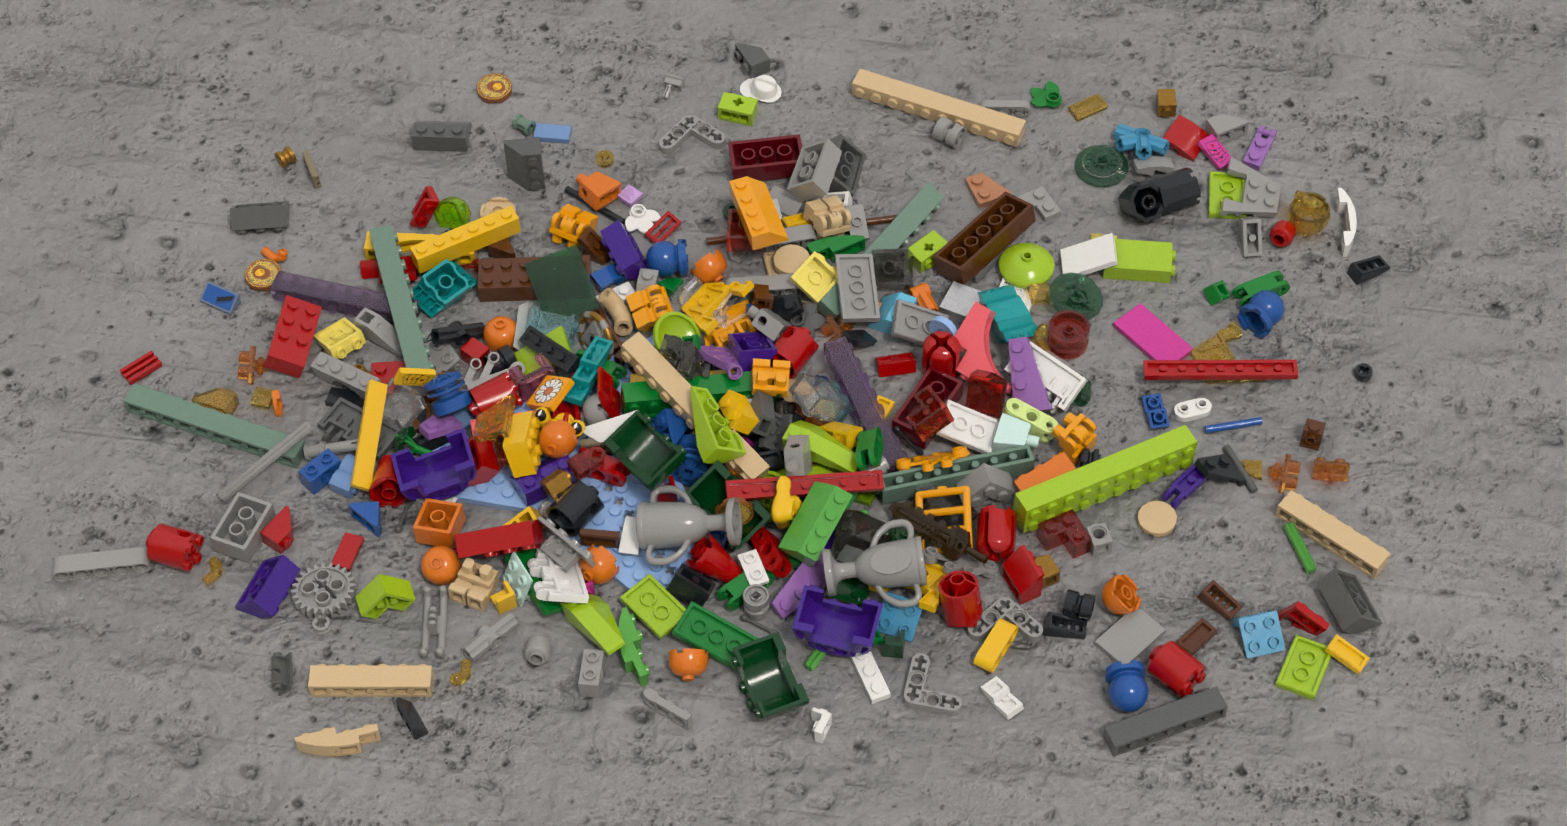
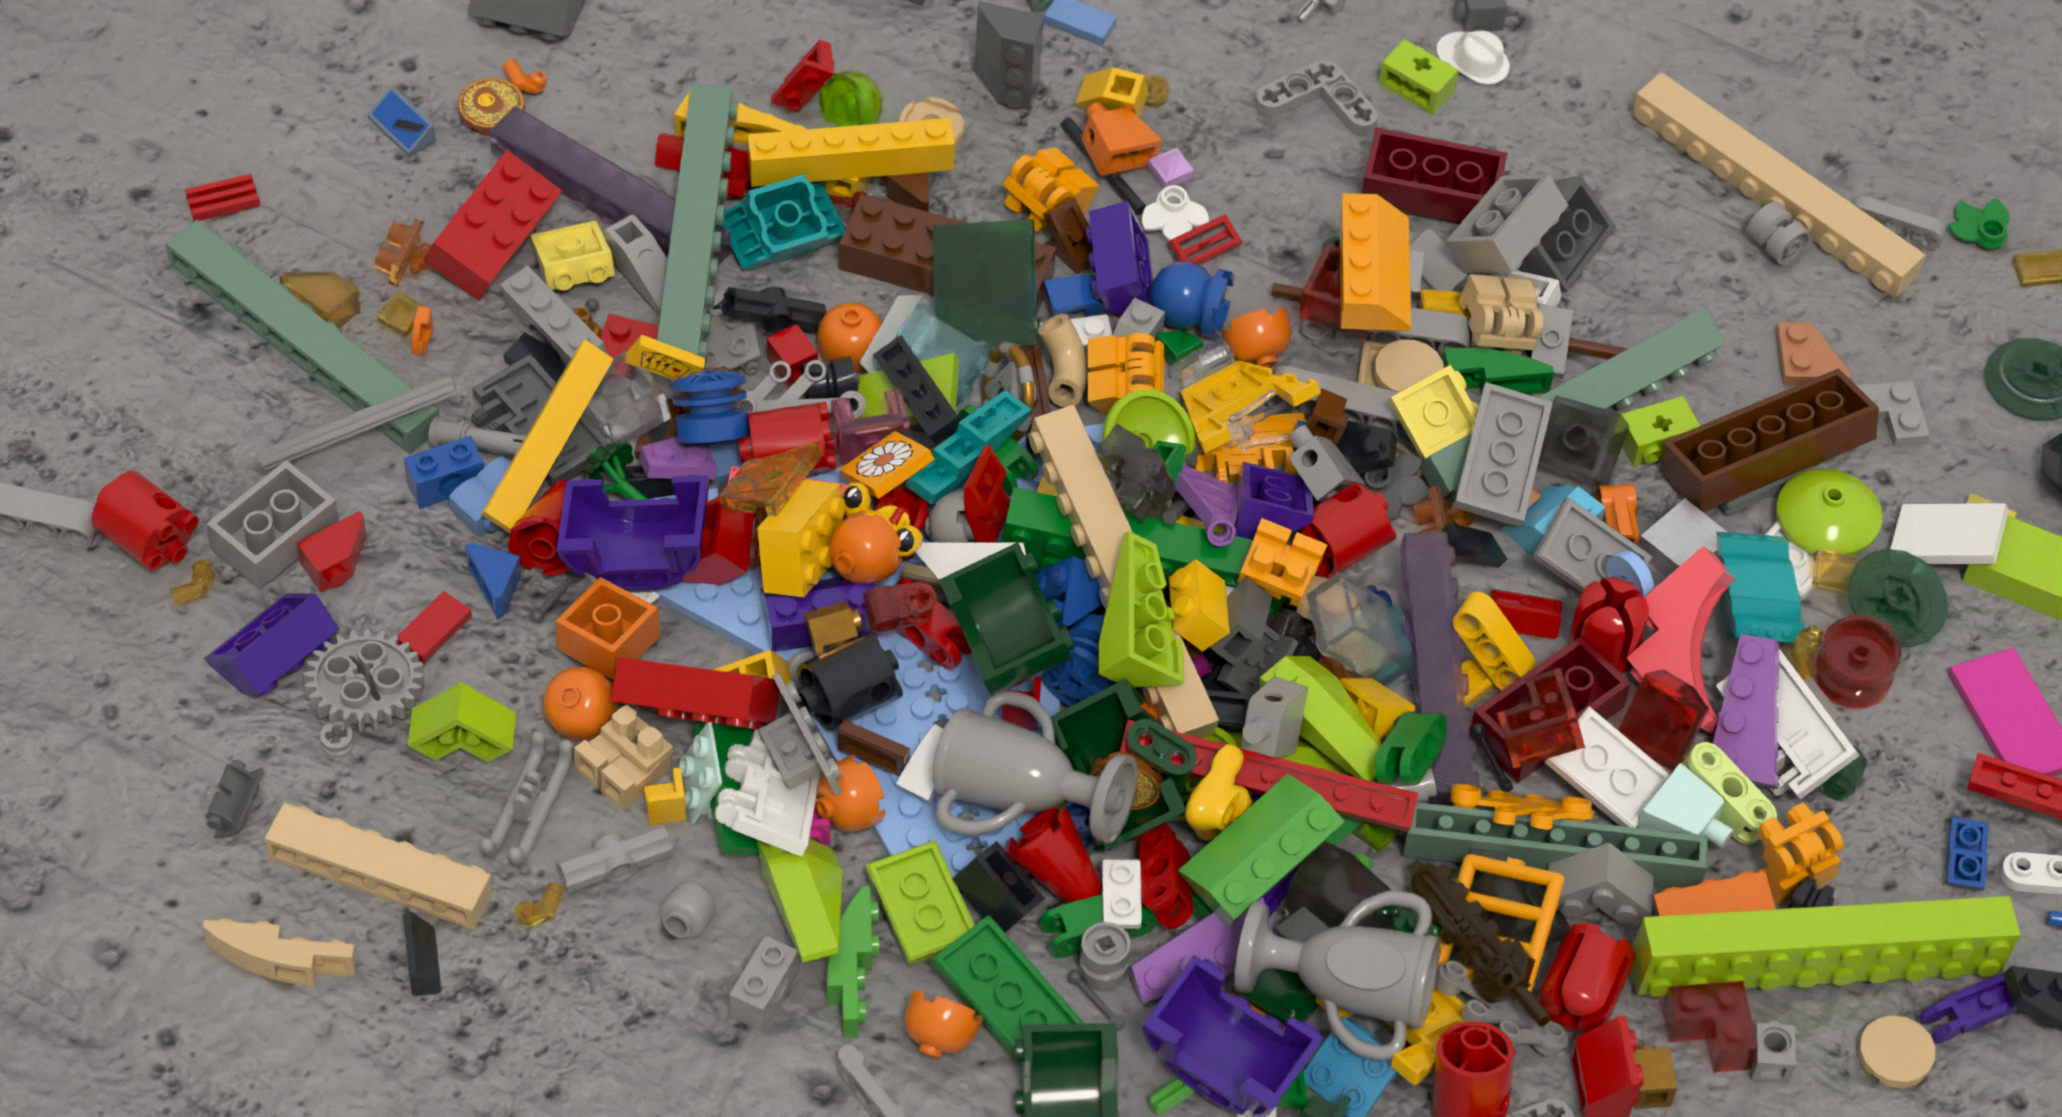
camera: 15 degrees right, 0 degrees up
(585, 163) = (1114, 90): none -> yellow slope
(748, 488) = (1163, 747): none -> dark green plate
(887, 382) = (1492, 640): none -> yellow beam

